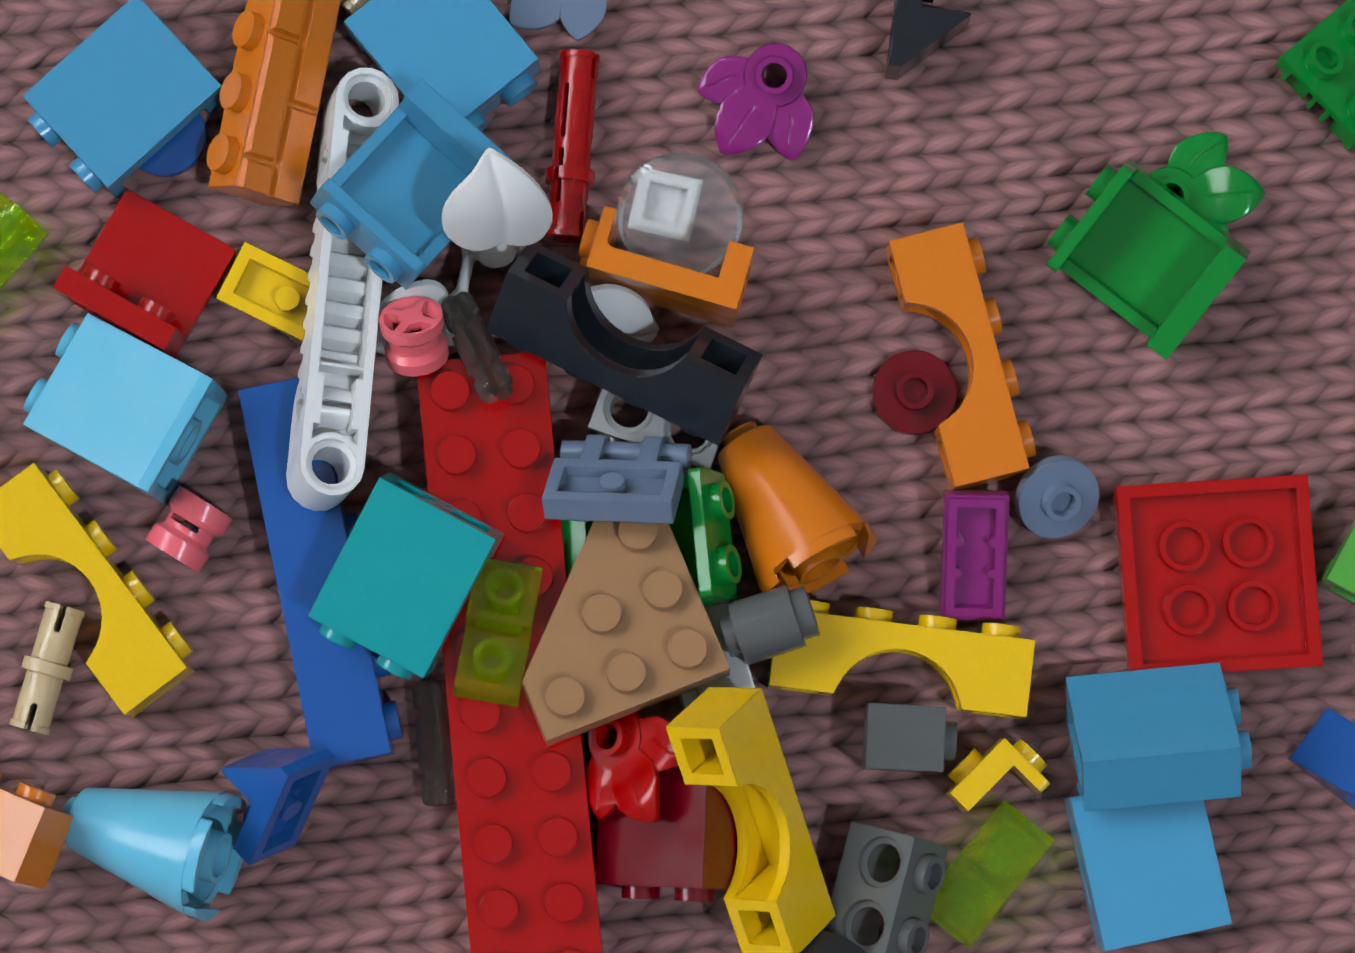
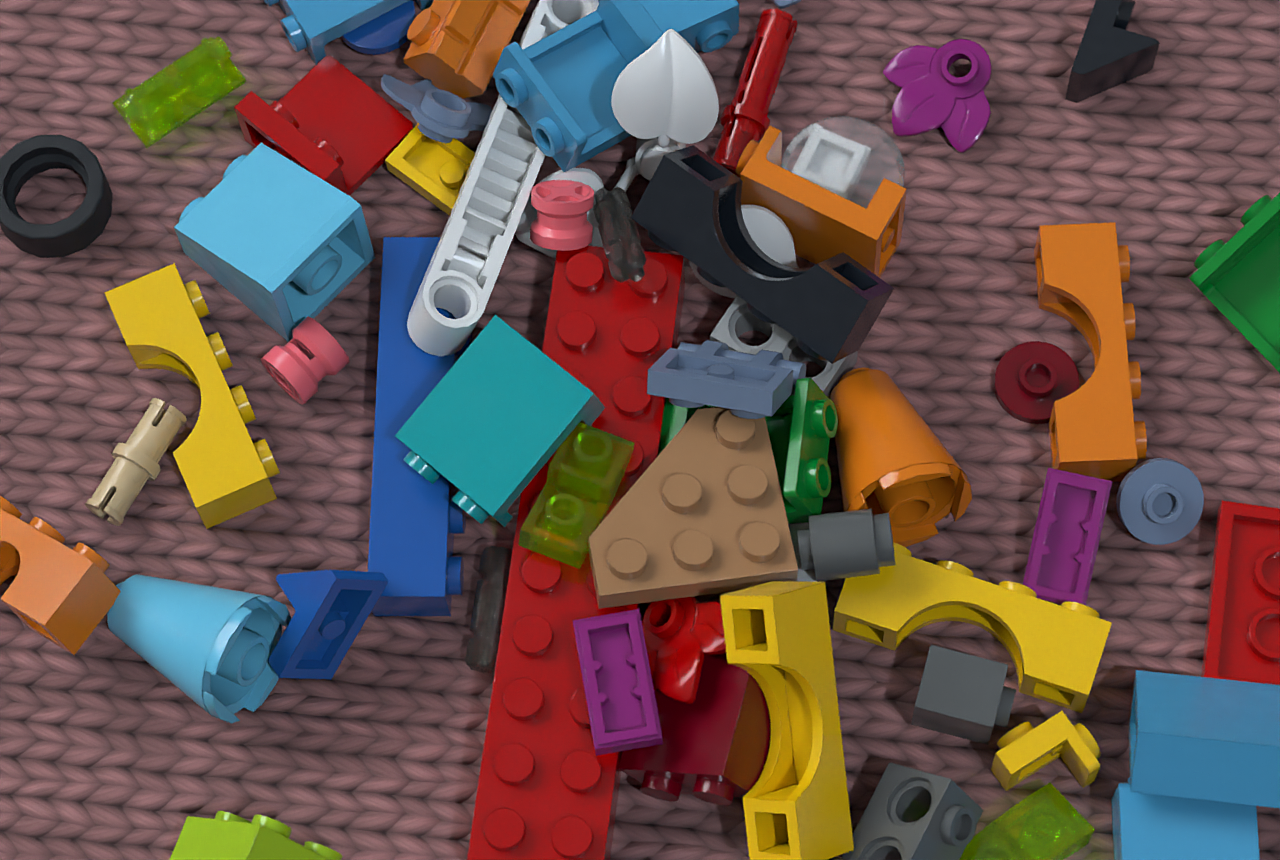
camera: 20 degrees right, 15 degrees down
(257, 240) = (437, 111): none -> sand blue plate
(581, 815) = (617, 682): none -> magenta plate

